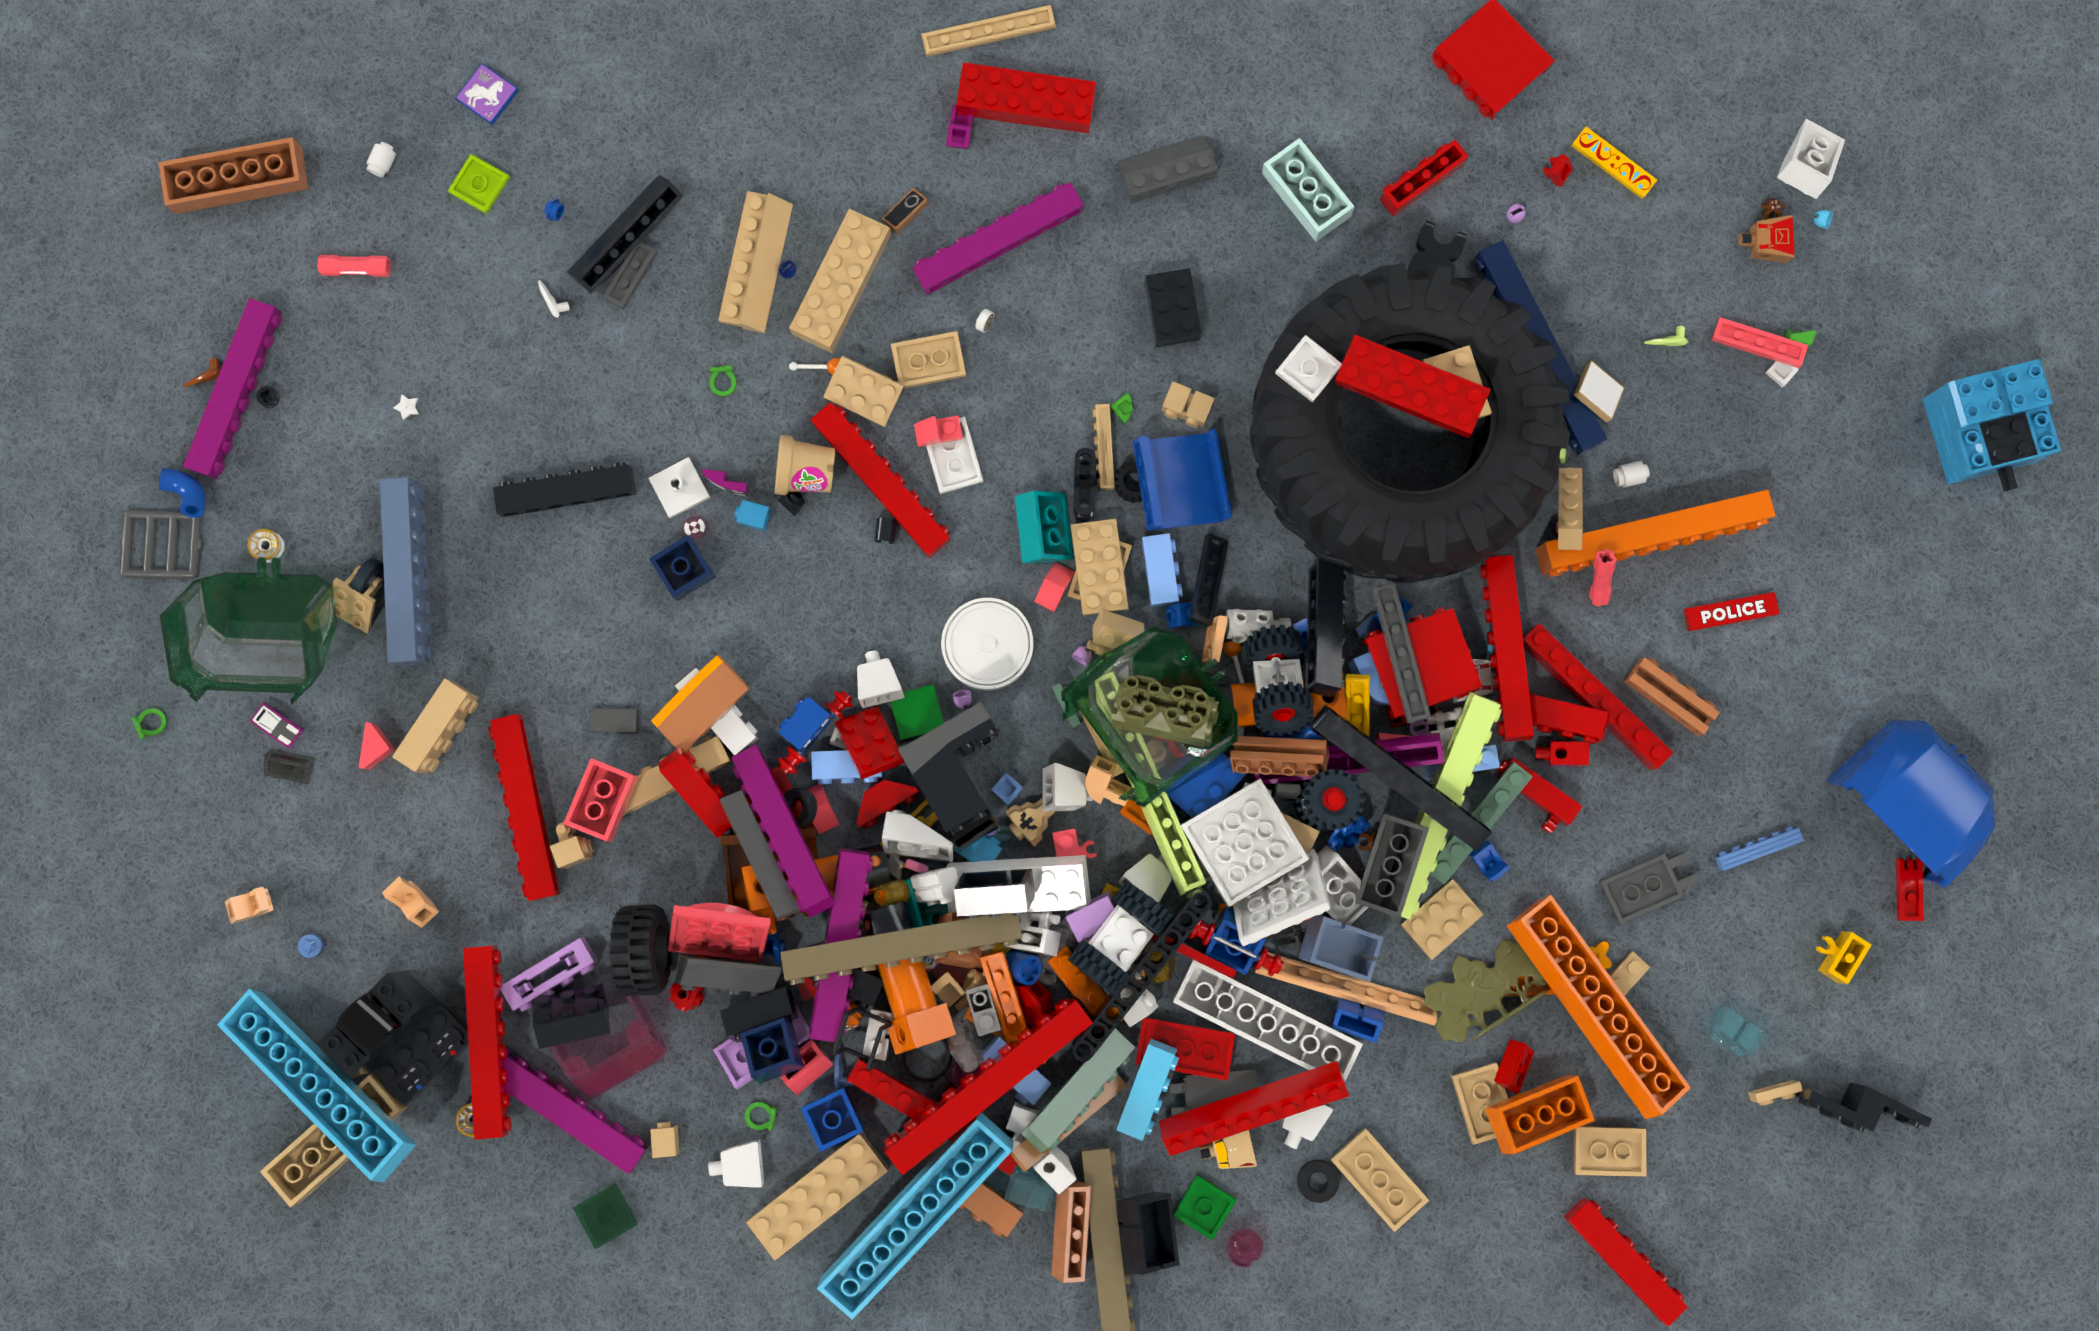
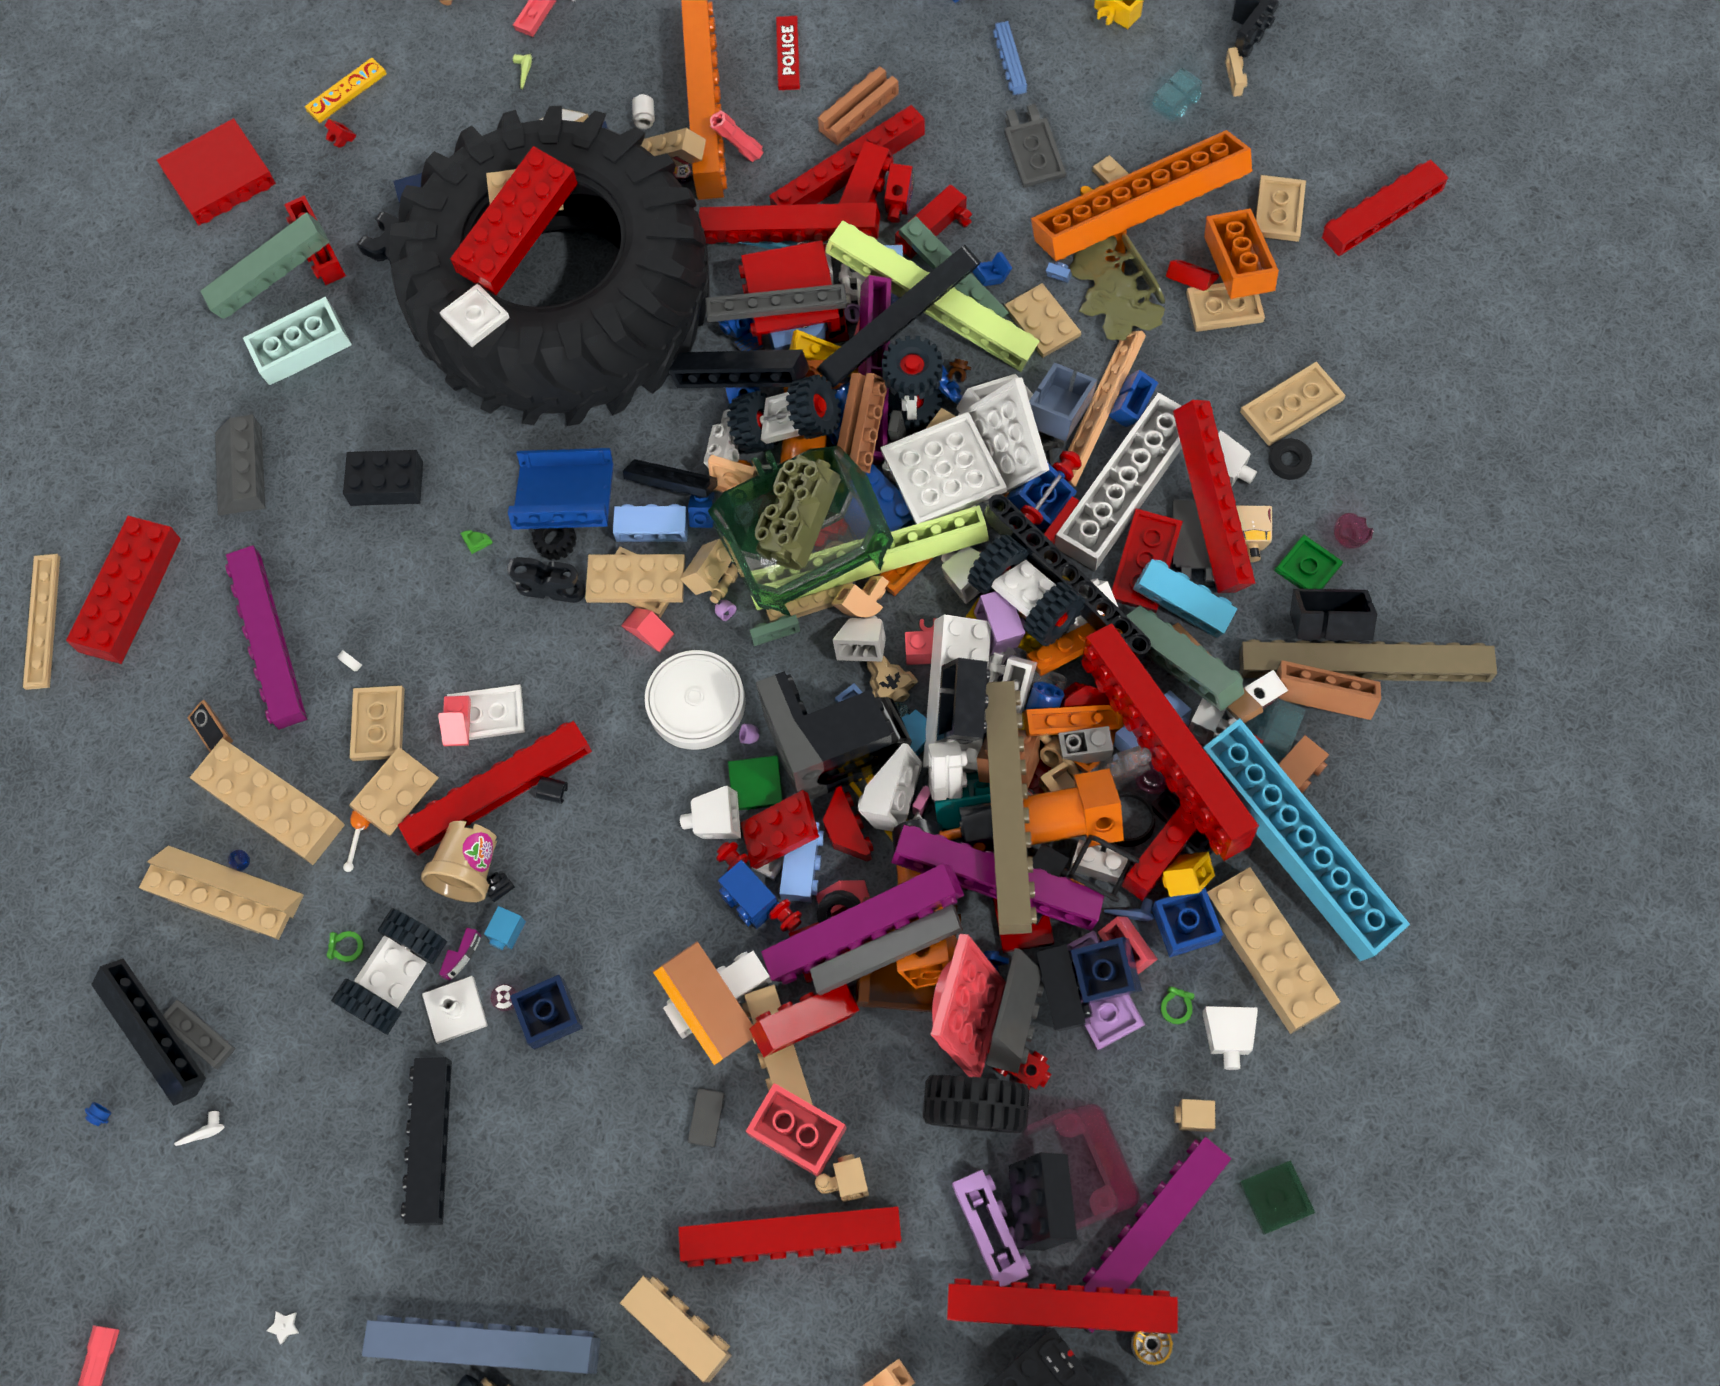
camera: 75 degrees left, 15 degrees down
(478, 184) = (40, 1203): lime tile -> none
(699, 428) = (390, 971): none -> plate
(873, 1116) = (1188, 874): none -> yellow brick
(892, 893) = (948, 817): clear yellow brick -> none
(959, 130) = (138, 661): magenta slope -> none
(1043, 527) = (582, 630): teal slope -> none
(1104, 446) = (499, 560): tan piece -> none
(1187, 406) = (485, 484): tan piece -> none
(1381, 139) = (265, 266): none -> sand green brick
(1392, 865) = (984, 342): dark grey slope -> none
(1497, 930) = (1059, 271): none -> medium blue plate
(1517, 217) = (376, 173): lavender hinge -> none

